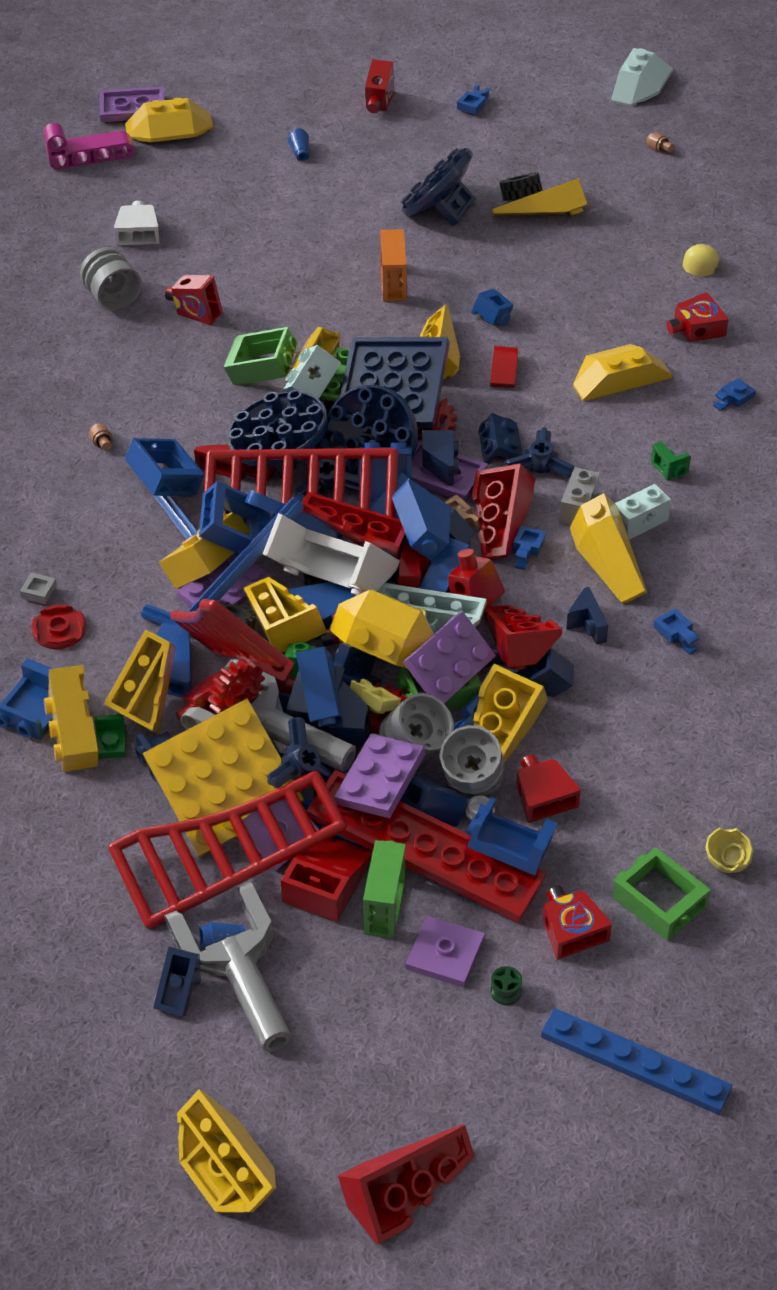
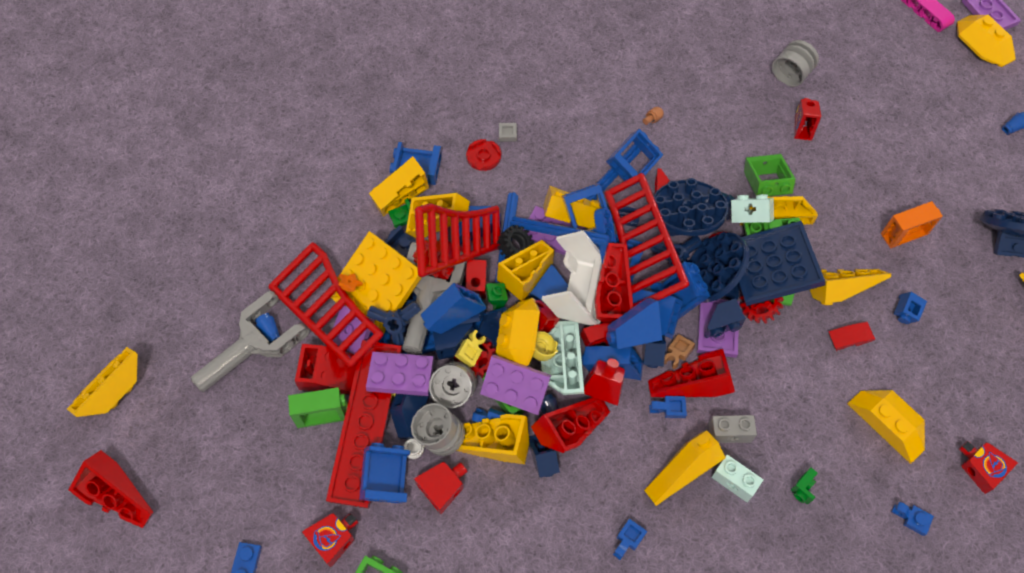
camera: 70 degrees right, 15 degrees up
(136, 225) = (864, 59): white torso -> none
(177, 980) = (224, 314): dark blue slope -> none
(213, 800) = (349, 282): none -> orange plate
(445, 951) = (292, 462): medium lavender plate -> none
(500, 438) = (771, 356): dark blue bracket -> none
(501, 980) = (265, 507): dark green wheel -> none
(542, 457) = (761, 396): dark blue bush -> none
(587, 613) = (619, 466): dark blue slope -> none

